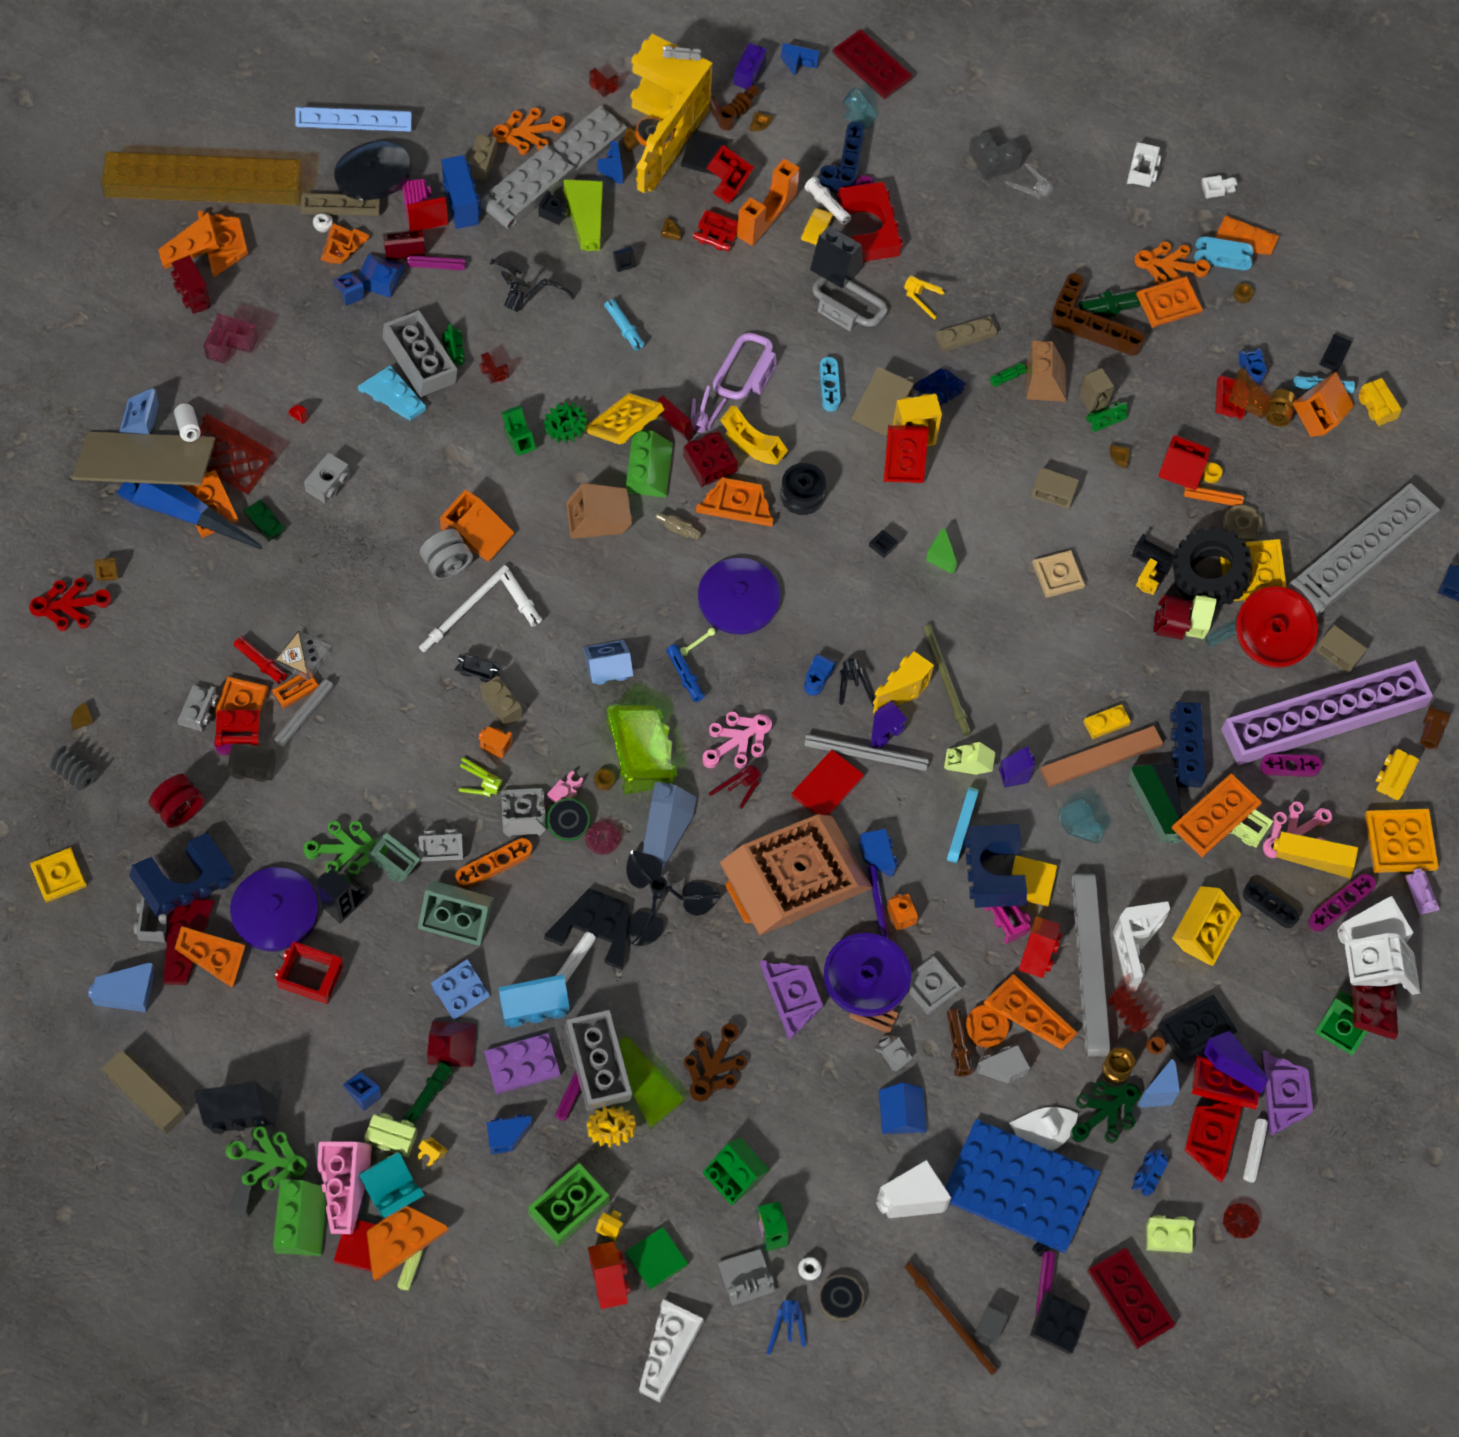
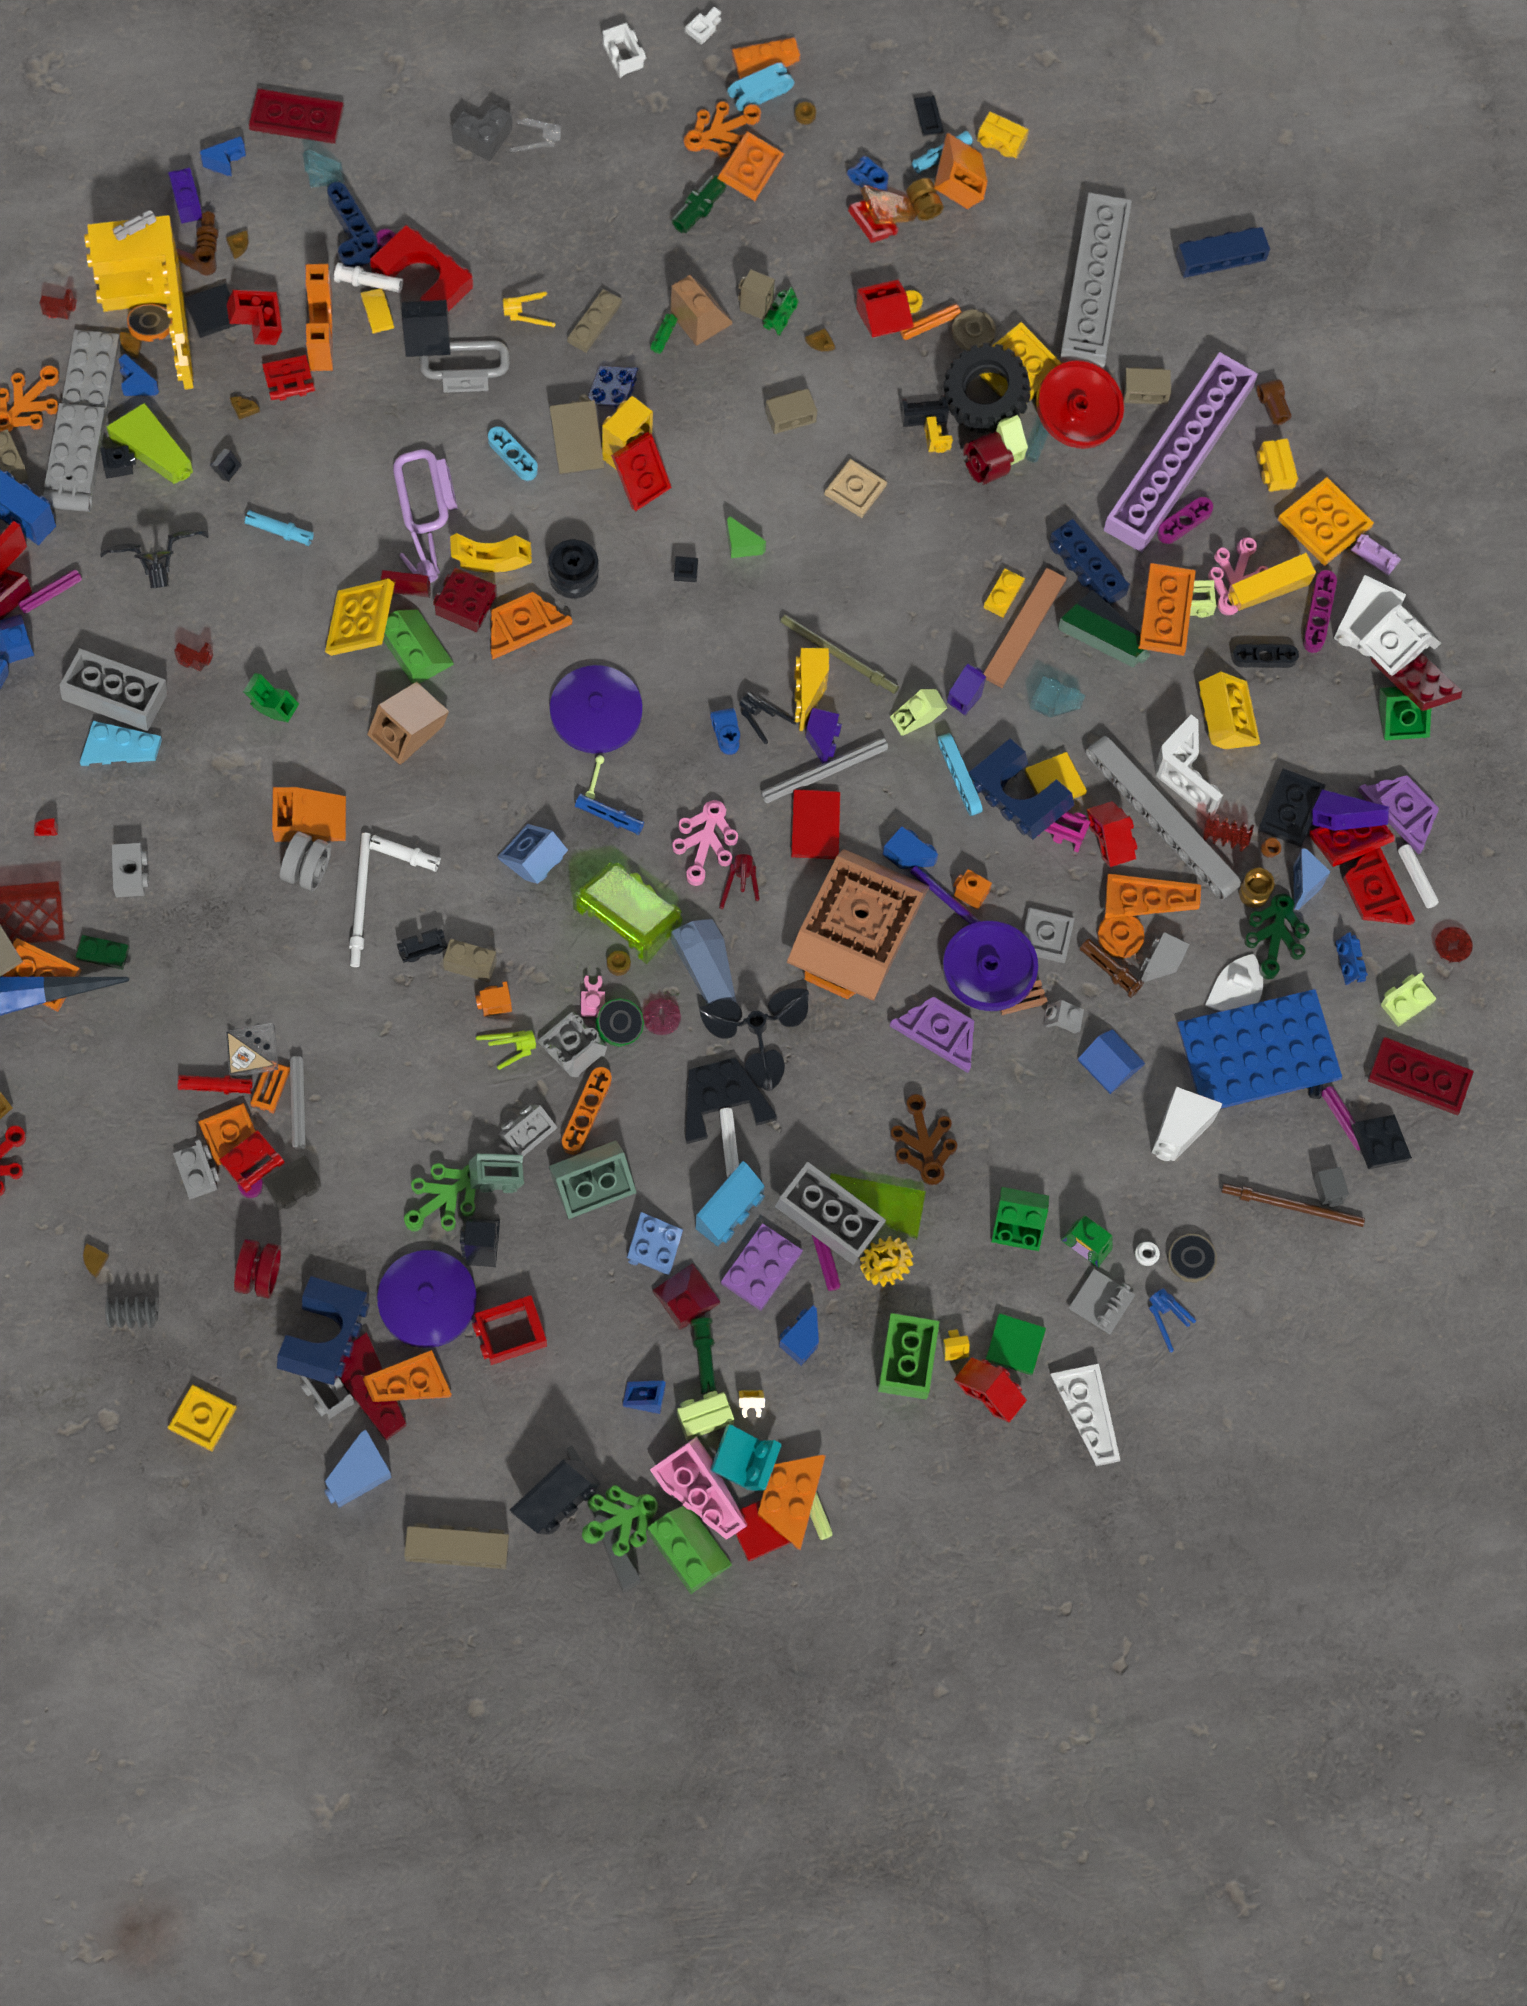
camera: 40 degrees left, 5 degrees up
(452, 339) = (129, 655): green hinge -> none
(565, 421) = (315, 661): green gear -> none
(679, 526) = (489, 683): dark tan piece -> none
(1091, 322) = (697, 232): reddish brown beam -> none

